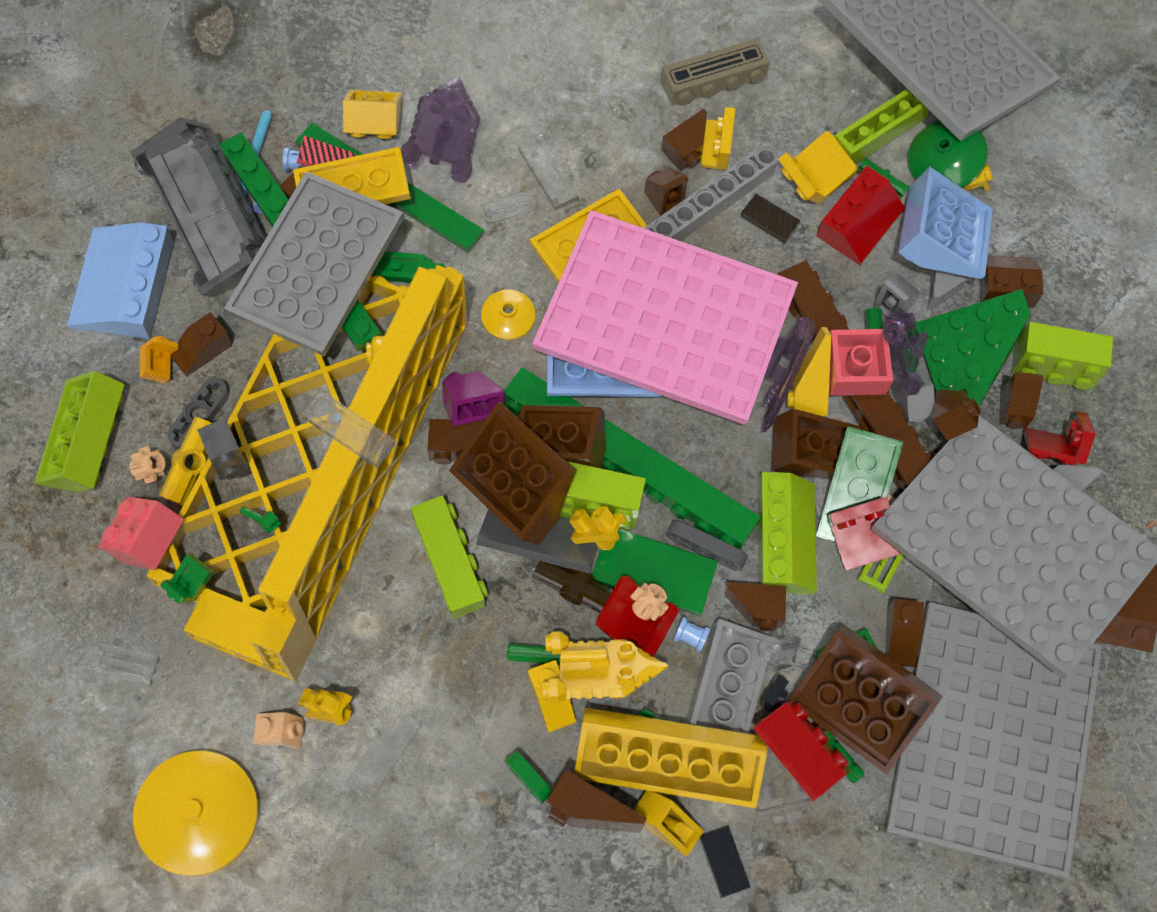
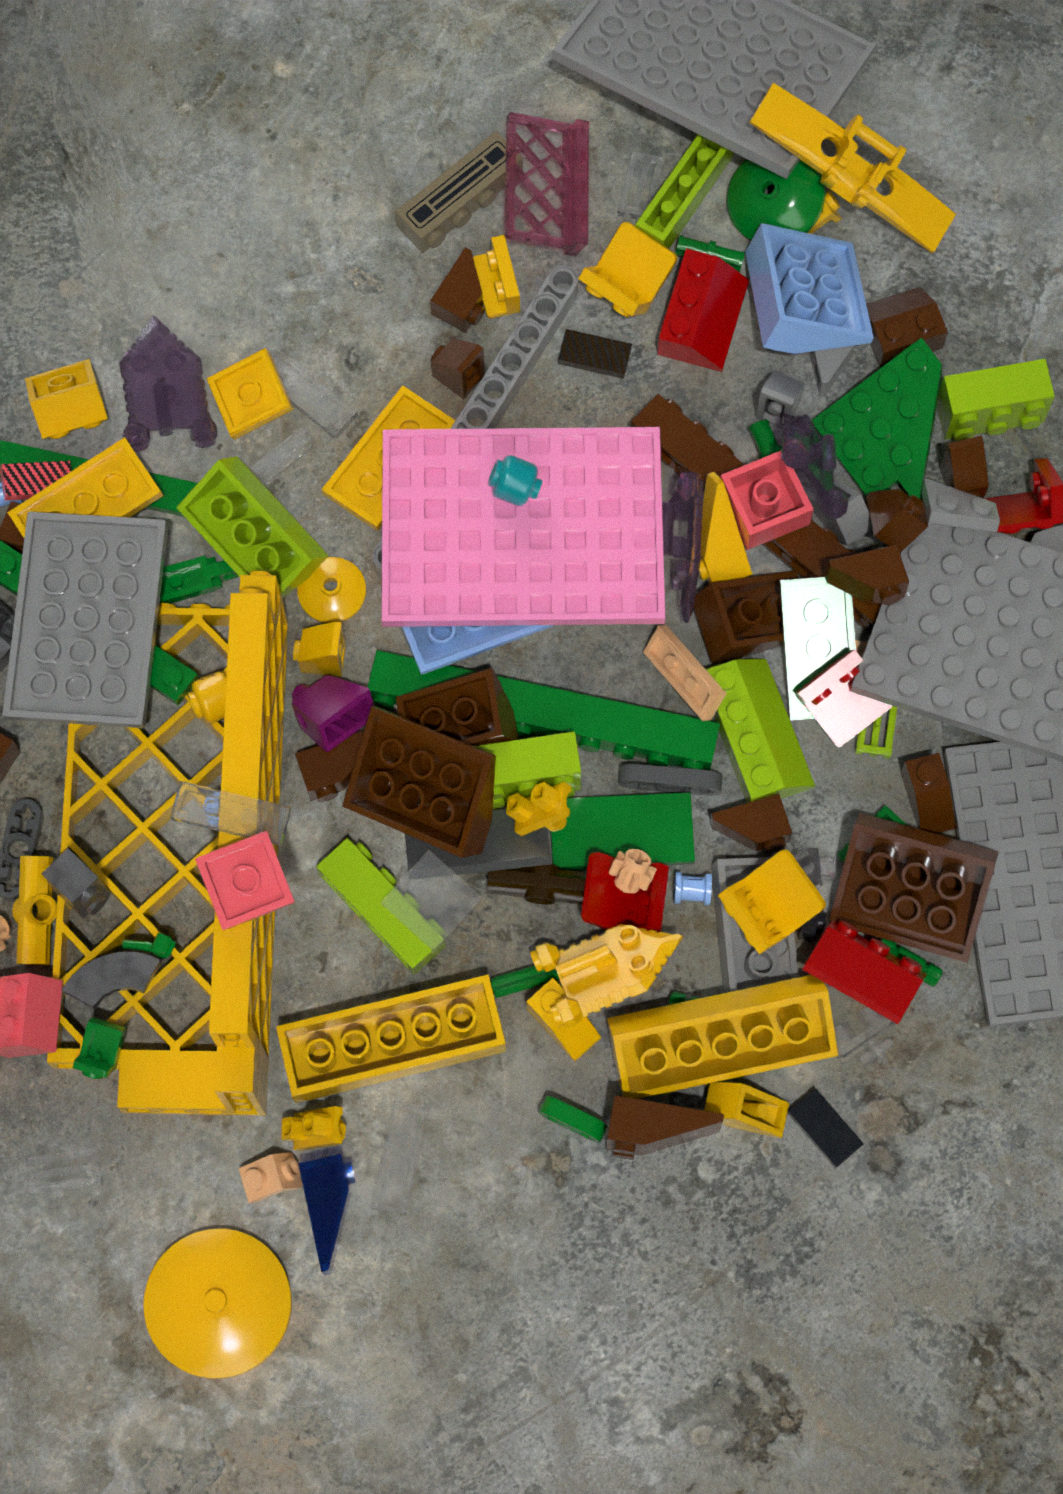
camera: 15 degrees left, 5 degrees up
(222, 528) = (112, 974): none -> flat silver tile
(312, 766) = (327, 1200): none -> clear blue slope
(335, 482) = (244, 880): none -> coral plate
(412, 659) = (391, 1039): none -> yellow brick
(466, 242) = (250, 526): none -> lime slope
(482, 352) = (321, 649): none -> yellow slope
(485, 565) = (431, 900): none -> clear tile
(505, 155) = (250, 393): none -> yellow tile
(673, 278) = (514, 480): none -> teal head
(748, 469) = (684, 672): none -> light nougat tile
(749, 666) = (772, 901): none -> yellow bracket
(797, 99) = (574, 180): none -> clear pink fence
(918, 446) = (870, 575): none -> reddish brown slope
(987, 108) = (801, 132): none -> yellow piece
(1005, 423) = (957, 508): none -> light grey wing

